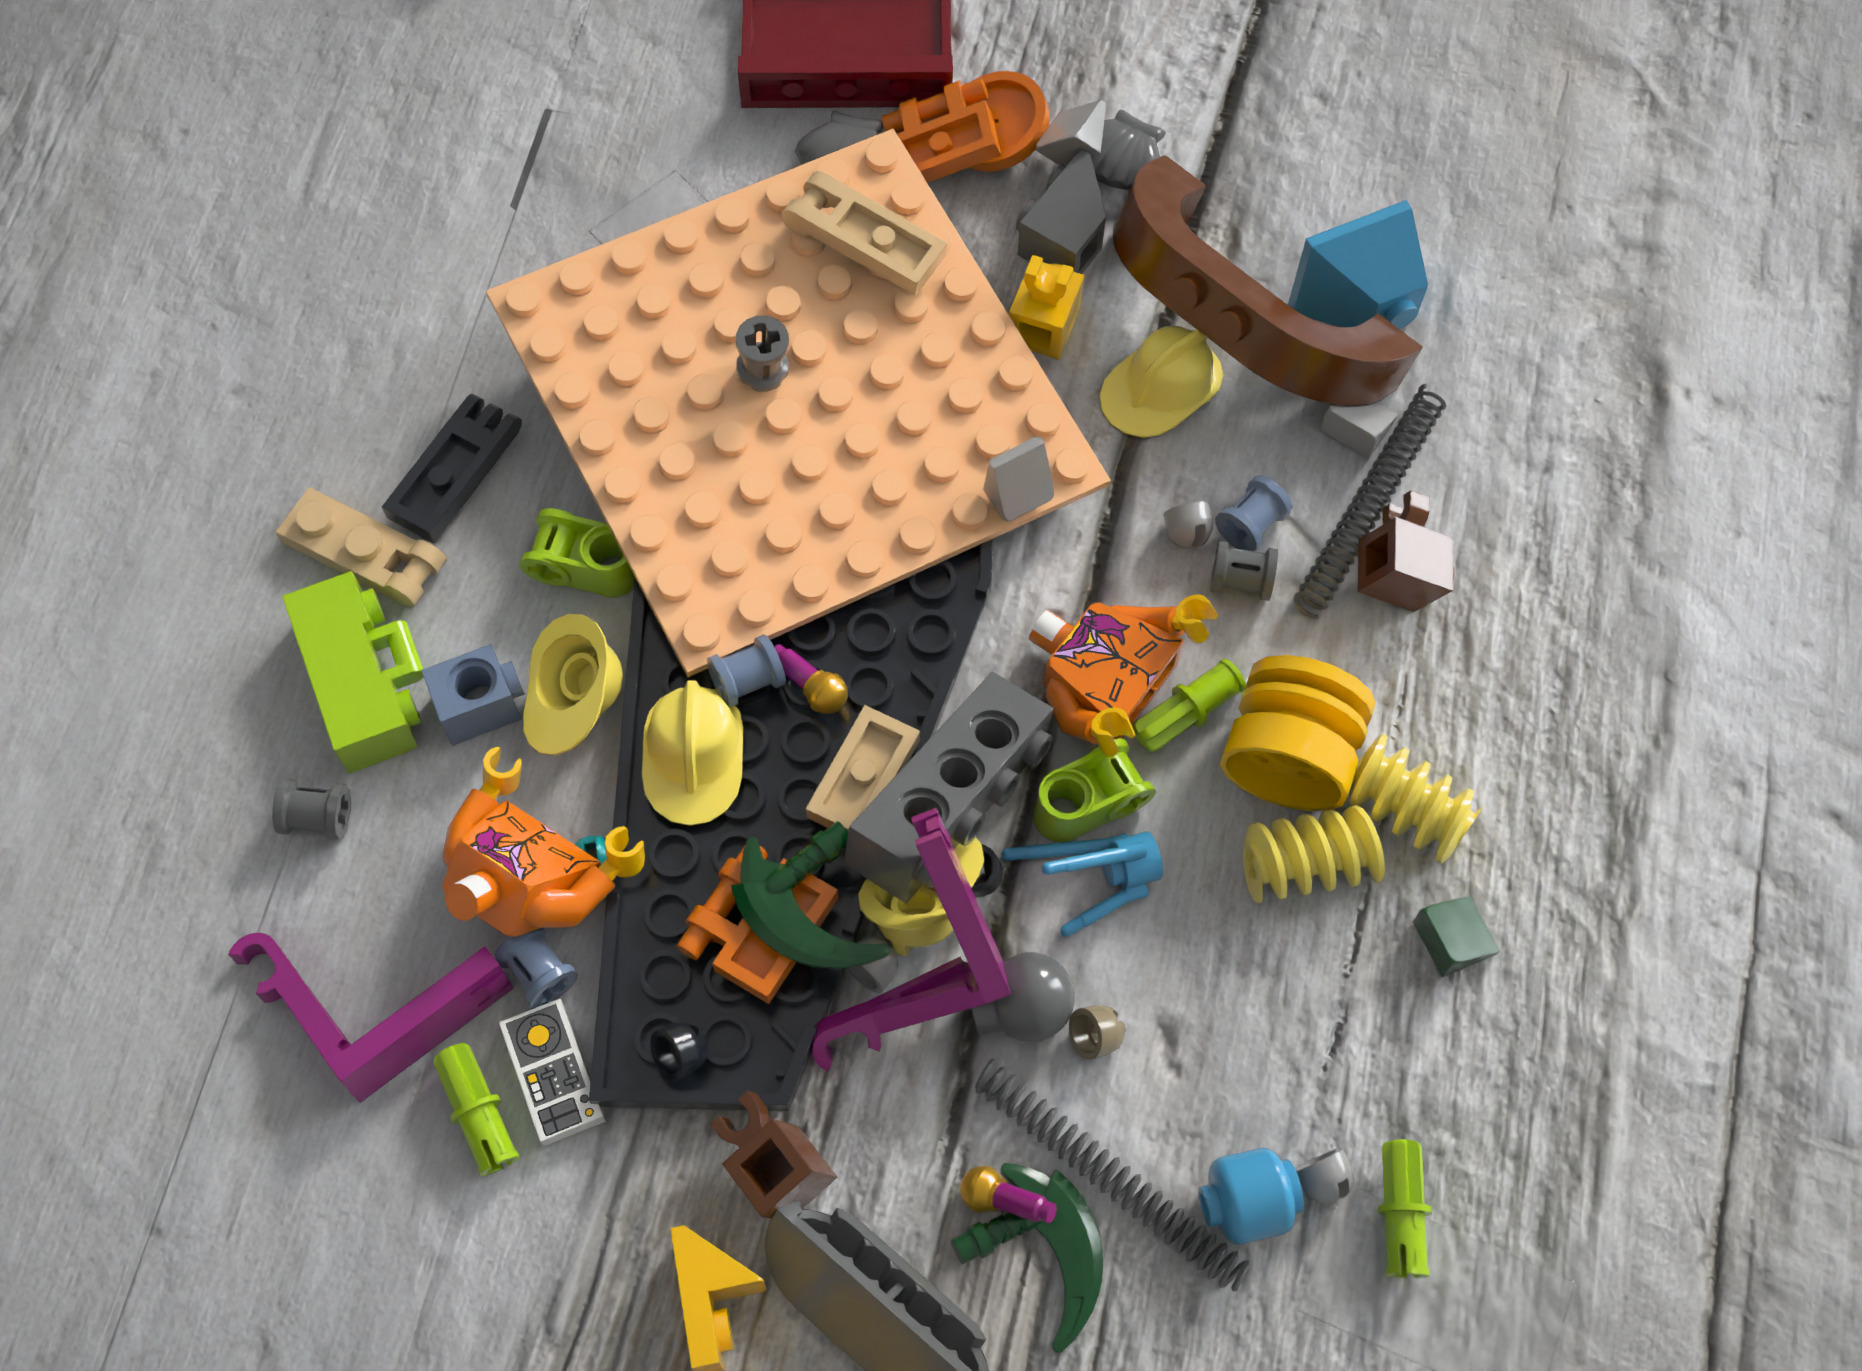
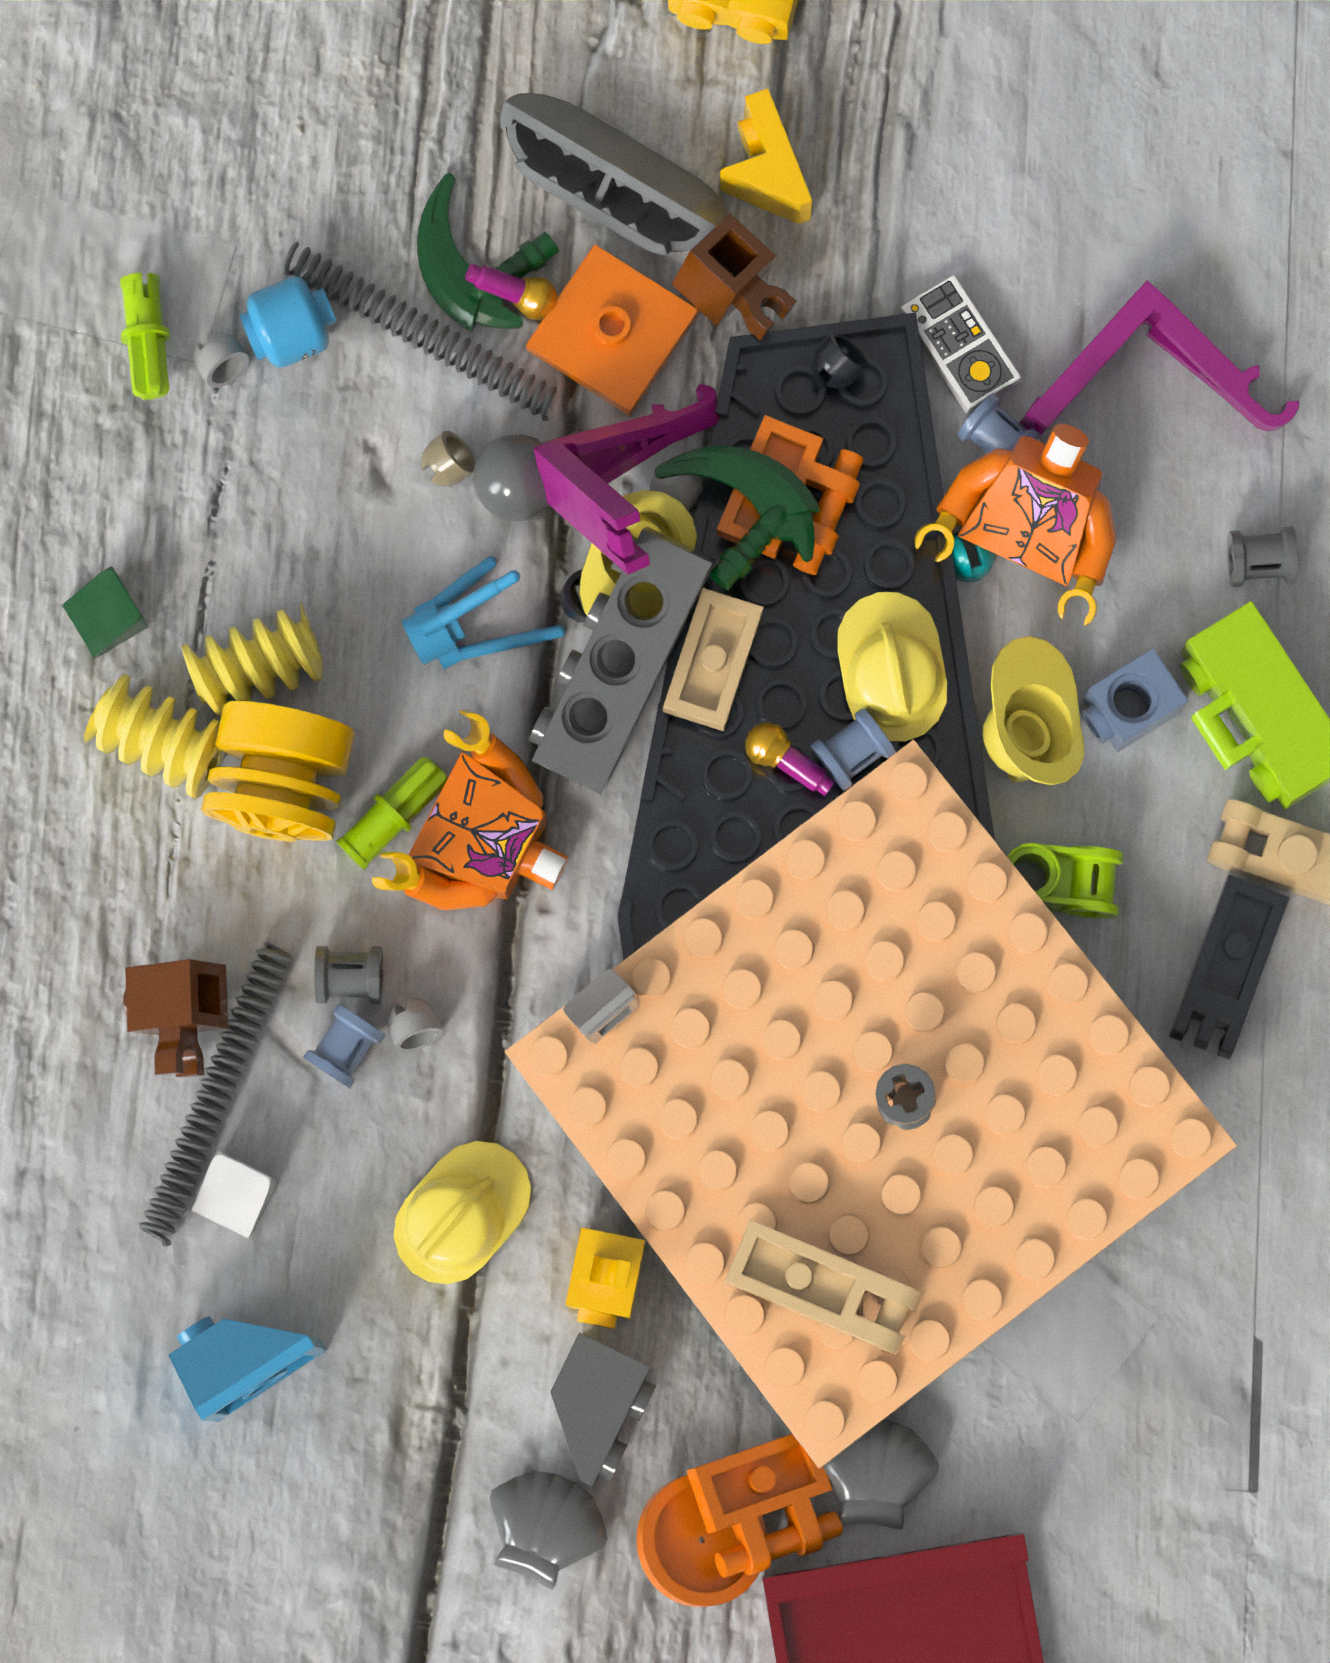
camera: 175 degrees right, 15 degrees up
(475, 1109) = (1021, 294): lime axle -> none
(907, 1145) = (612, 330): none -> orange plate
(1074, 131) = (604, 1520): light grey slope -> none
(1100, 789) = (475, 692): lime piece -> none
(1239, 313) = (405, 1279): reddish brown arch -> none

